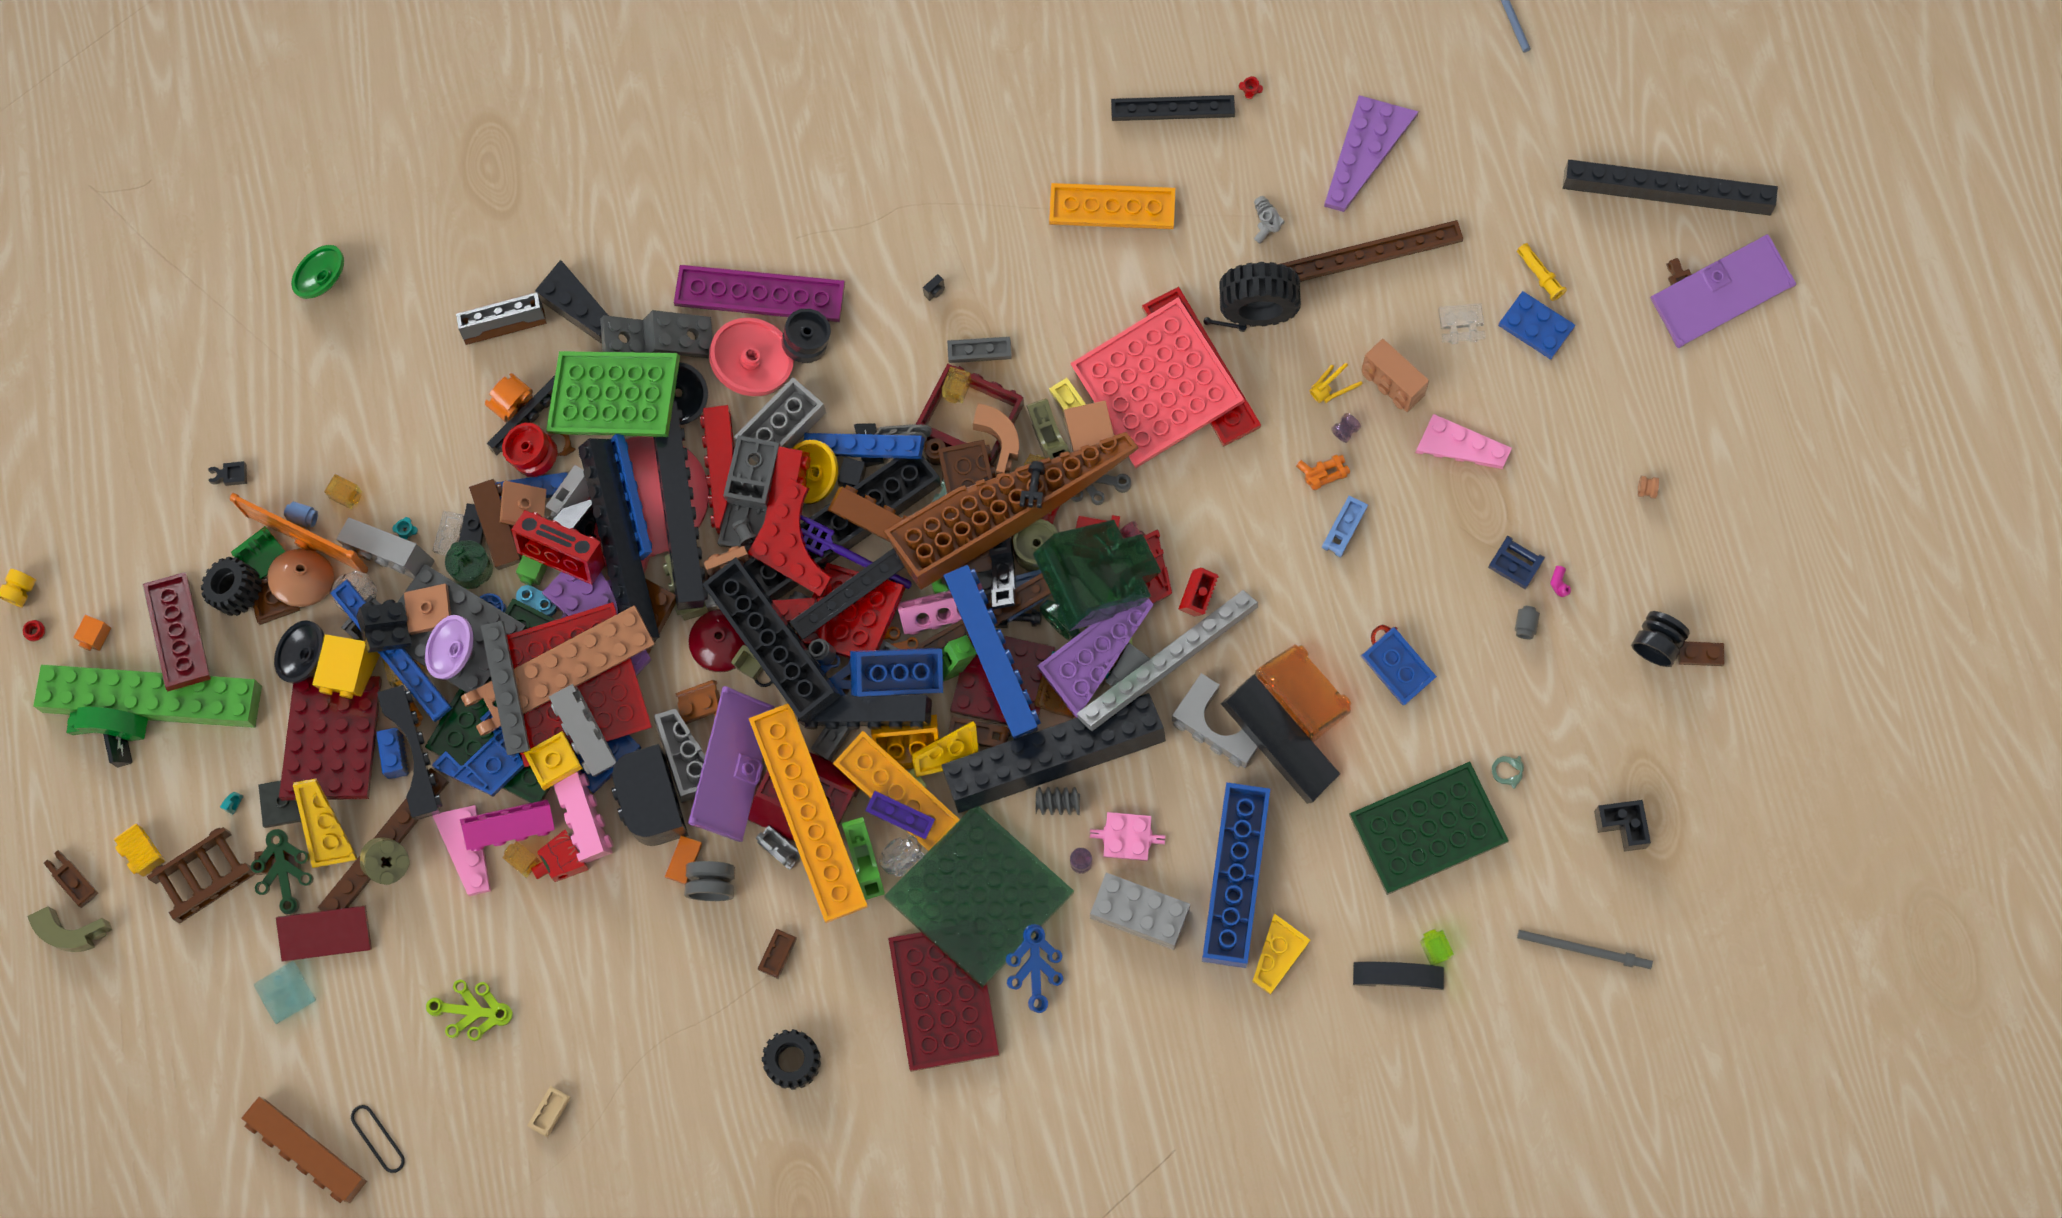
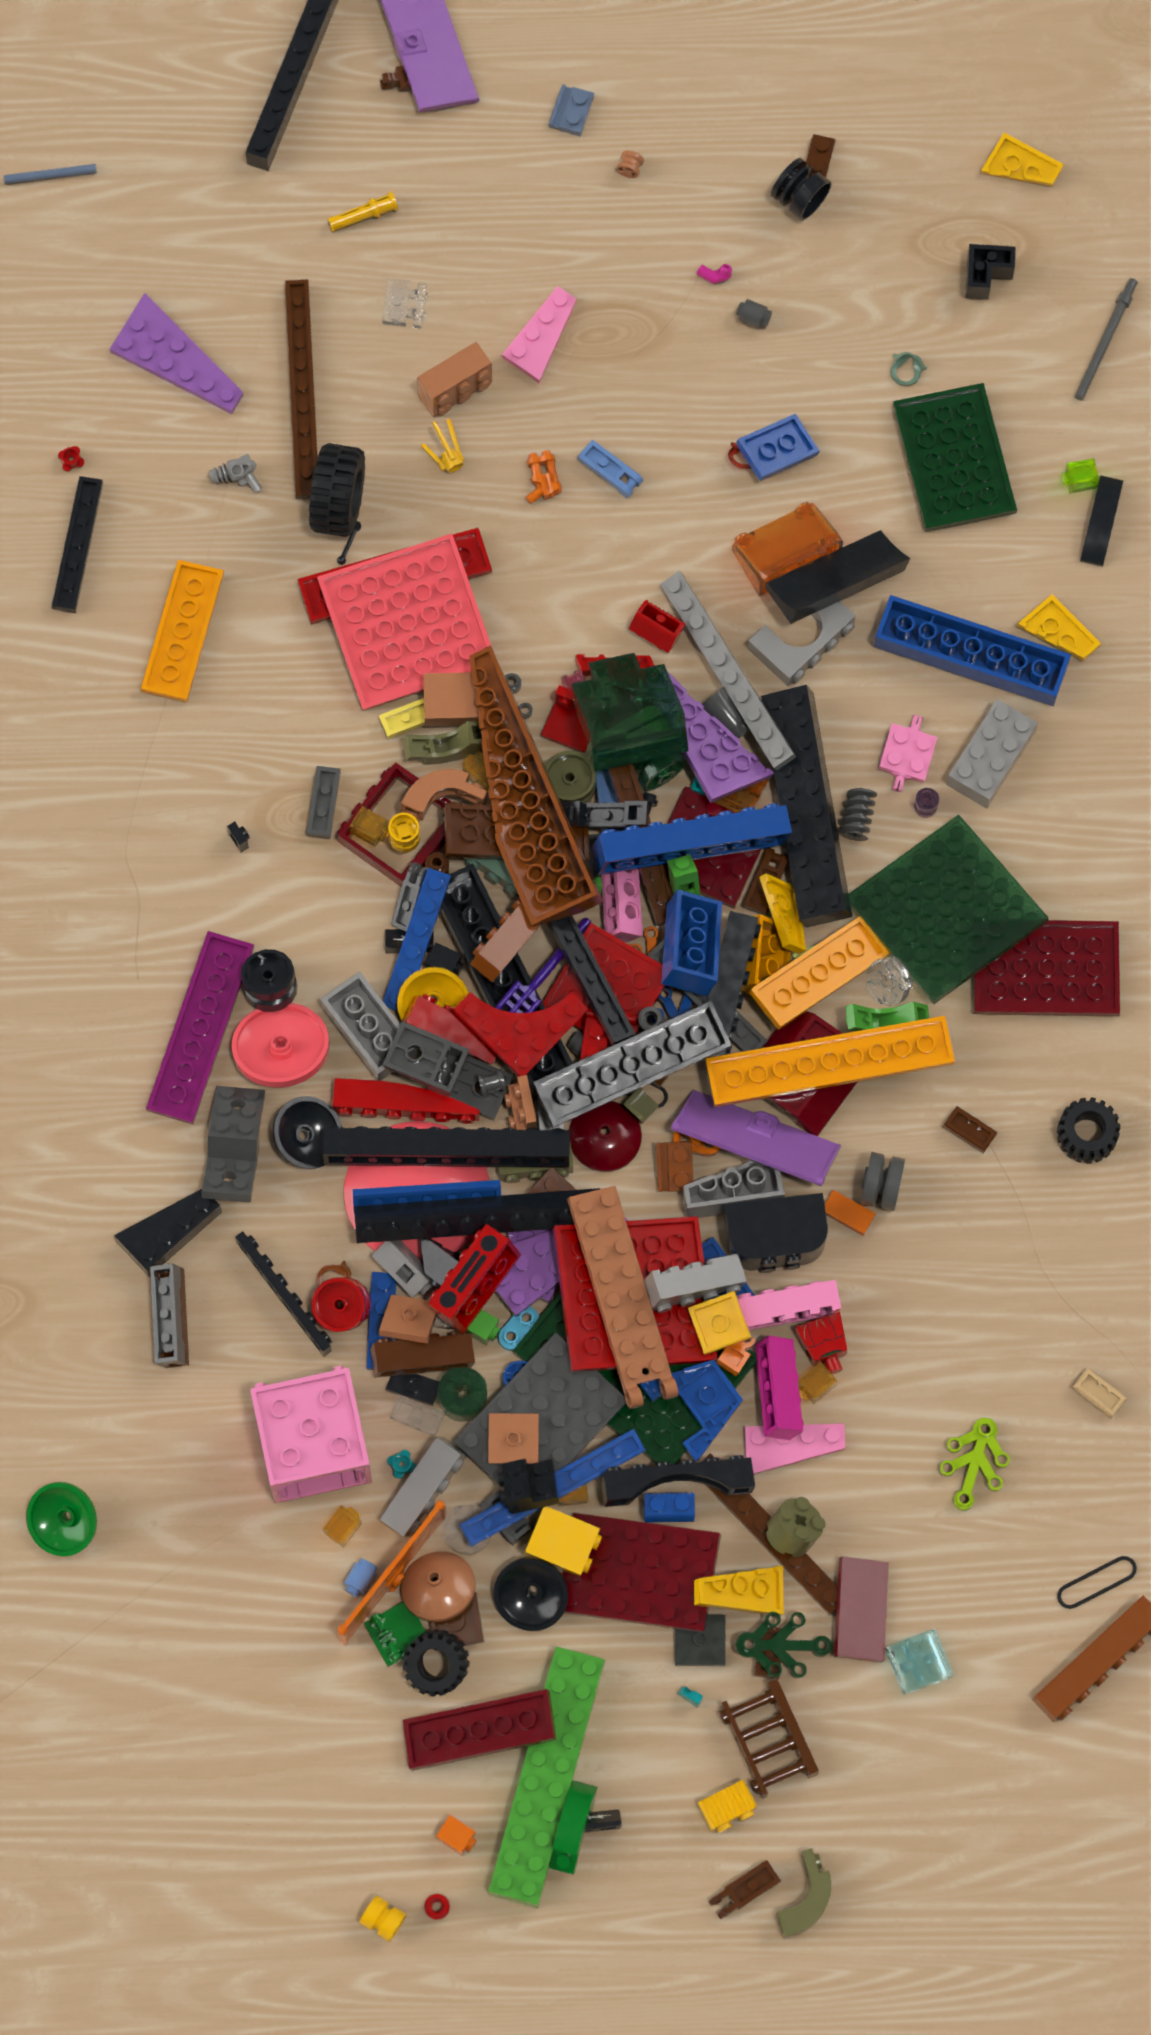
camera: 85 degrees left, 0 degrees up
(231, 474) = (291, 1653): black plate -> none
(403, 443) = (311, 1435): none -> bright pink piece
(449, 647) = (570, 1425): lavender dish -> none
(505, 688) = (634, 1353): dark grey plate -> none
(508, 397) = (272, 1318): orange brick -> none
(528, 782) = (735, 1356): none -> orange plate
(613, 393) = (301, 1193): bright green plate -> none
(778, 847) = (854, 1108): dark grey hinge -> none
(899, 815) = (848, 970): dark purple plate -> none
(955, 413) = (404, 832): none -> yellow wheel
(1034, 965) = (1006, 858): blue plant -> none
(1036, 469) = (497, 751): black hinge -> none
(1346, 427) = (499, 443): wheel -> none
(1514, 568) = (690, 315): dark blue plate -> none
(1536, 325) = (422, 231): blue plate -> none
(1690, 428) = (571, 110): none -> sand blue plate
(1746, 838) = (1021, 162): none -> yellow wing

